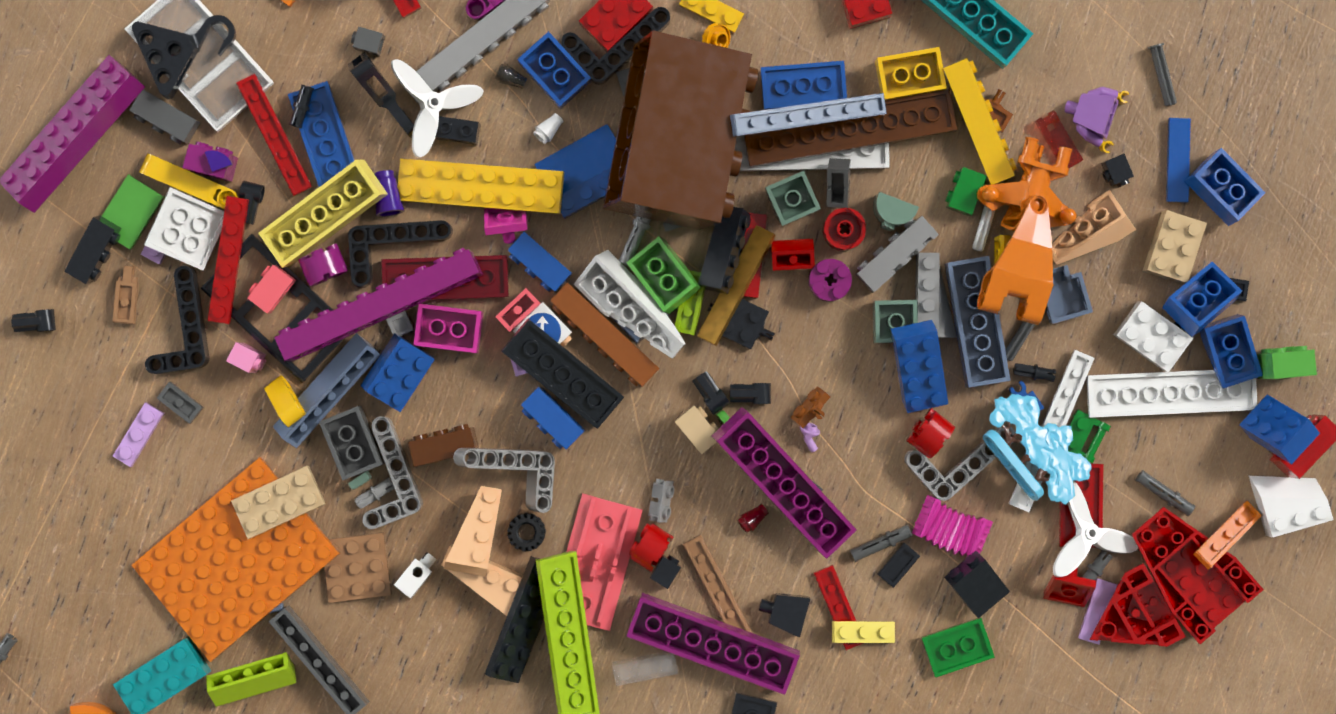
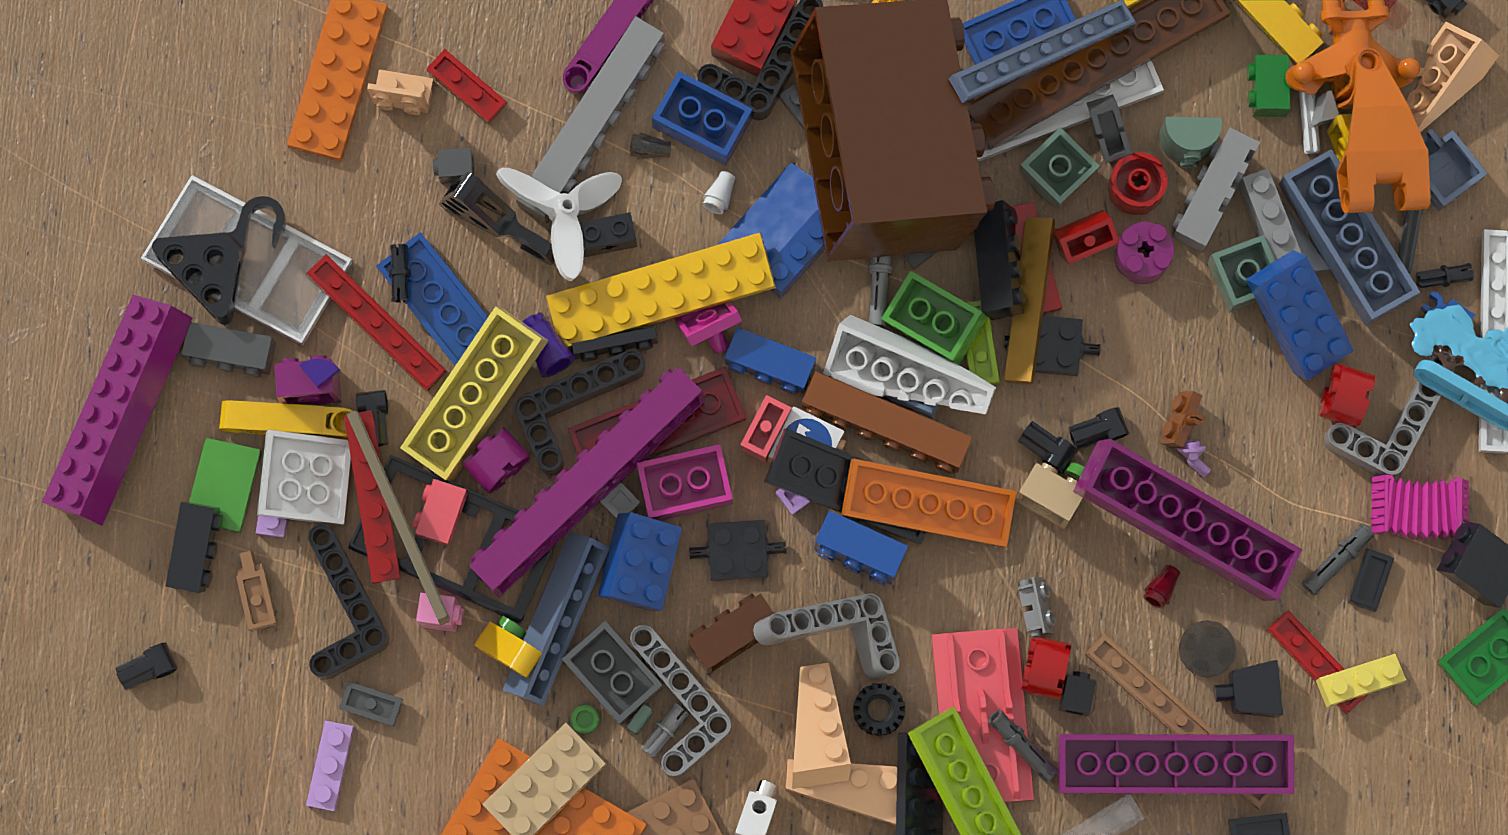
camera: 15 degrees left, 10 degrees down
(237, 284) = (398, 518): none -> dark tan tile
(294, 385) = (511, 627): none -> bright green tile
(323, 465) = (585, 719): none -> bright green tile
(435, 212) = (615, 344): none -> black plate
(469, 386) = (737, 550): none -> black plate
(610, 586) = (1014, 736): none -> dark grey pin
(611, 404) = (928, 503): none -> orange plate
(767, 571) = (1207, 648): none -> clear smoke dish
(996, 224) = (1325, 110): none -> light grey slope

